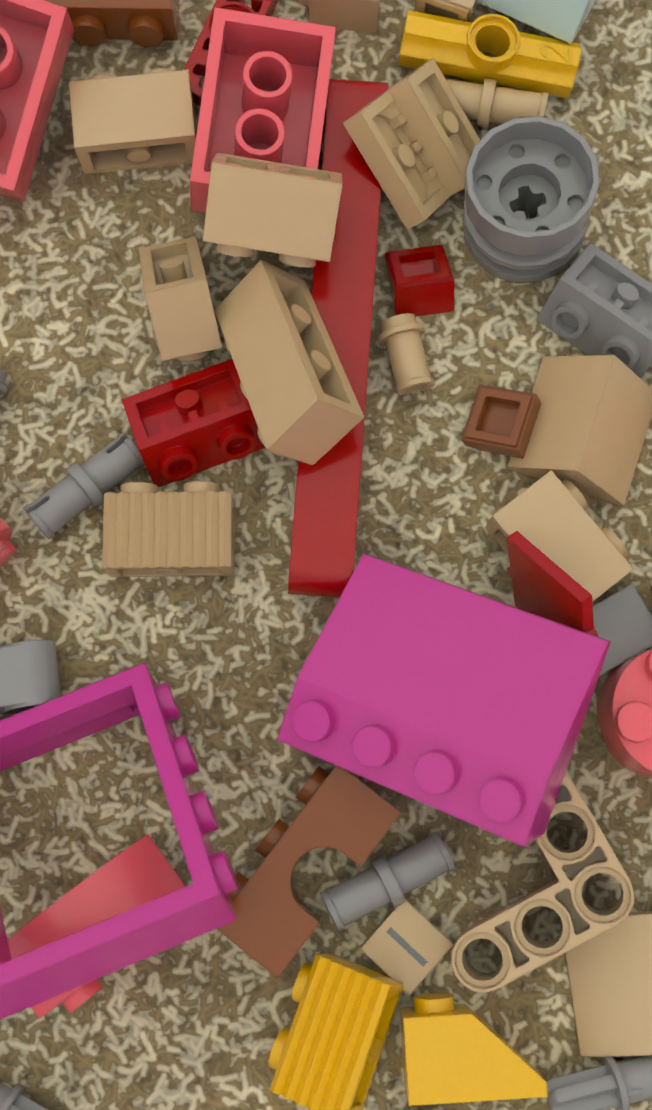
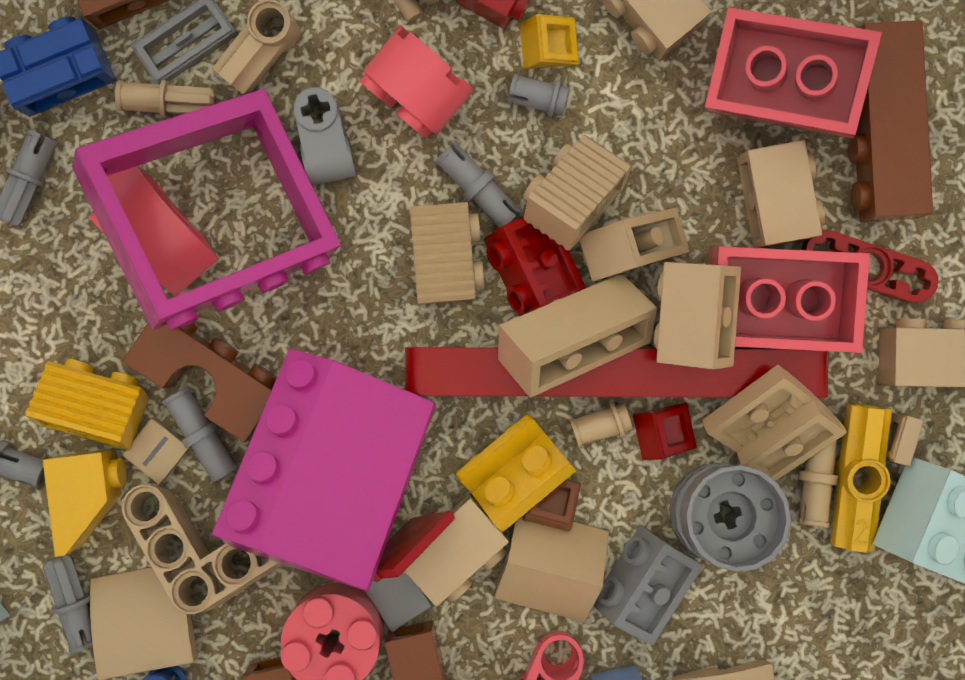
camera: 90 degrees right, 10 degrees up
(105, 358) = (575, 191): none -> tan brick
(461, 460) = (515, 472): none -> yellow bracket

